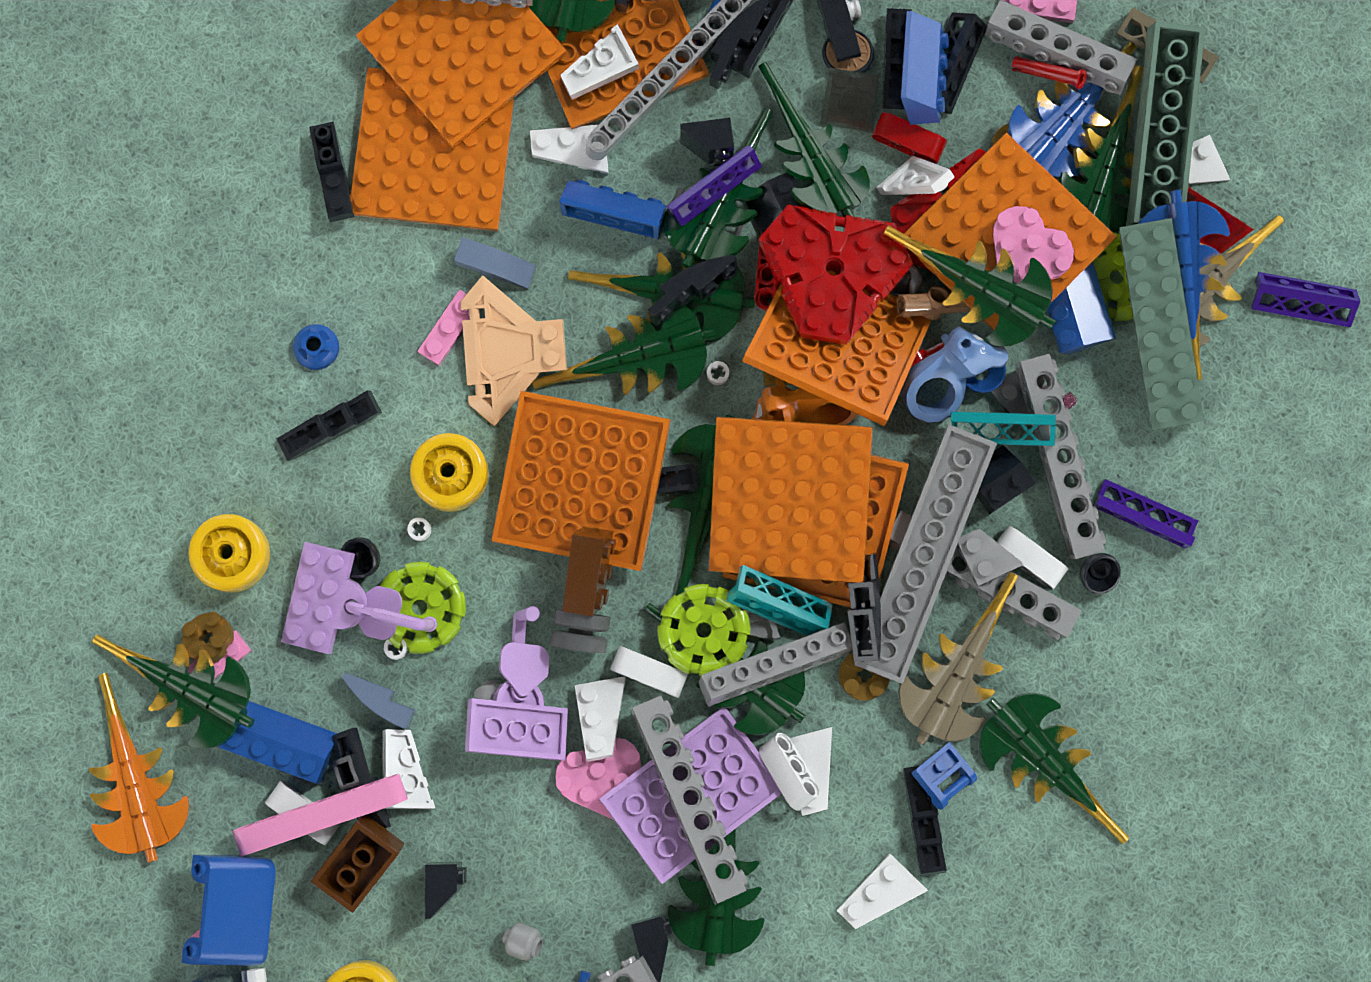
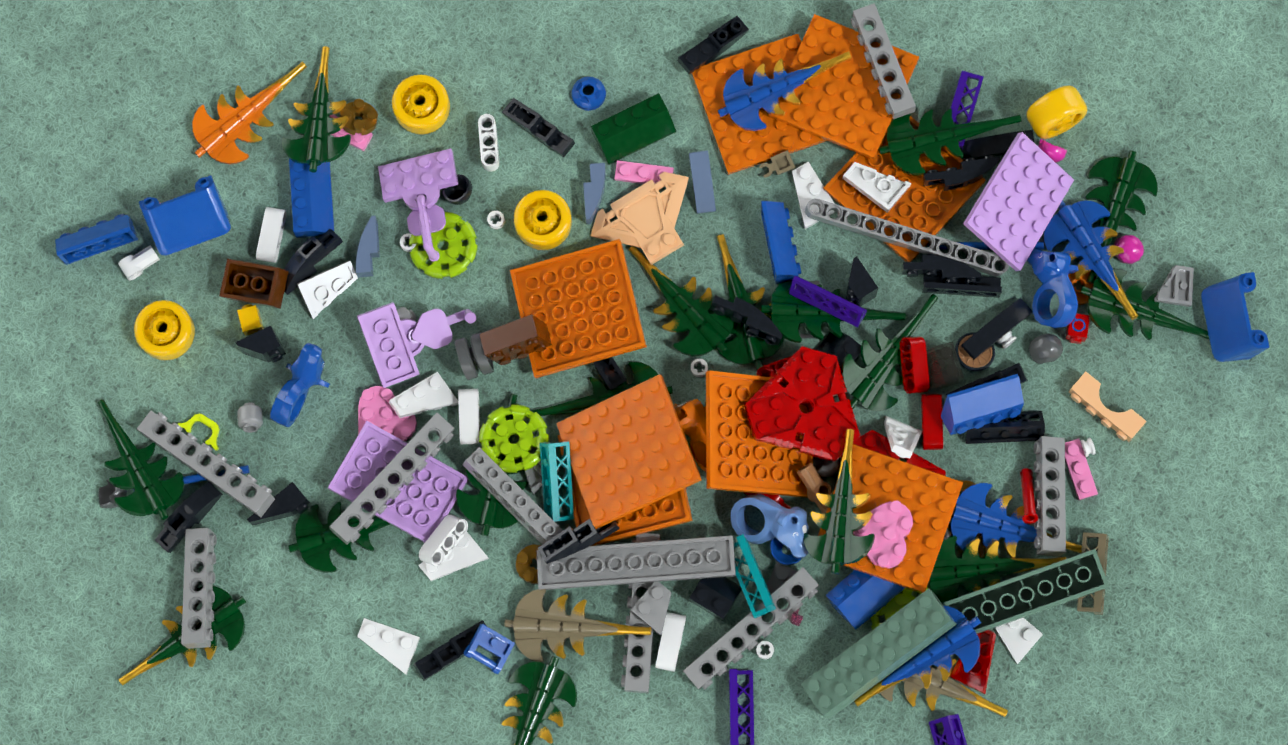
camera: 75 degrees right, 5 degrees down
(307, 489) = (488, 134): none -> white beam
(320, 814) = (273, 244): bright pink beam -> none
(388, 313) = (633, 129): none -> dark green slope
(398, 886) = (250, 319): none -> yellow brick
(424, 165) = (745, 101): none -> blue animal
(441, 395) = (594, 190): none -> sand blue slope
(503, 848) = (305, 373): none -> blue animal
(517, 163) = (780, 162): none -> dark tan plate
(835, 124) = (914, 364): none -> red beam
(1089, 446) = (758, 650): none -> white bush
(1100, 573) = (681, 694): black piece -> none

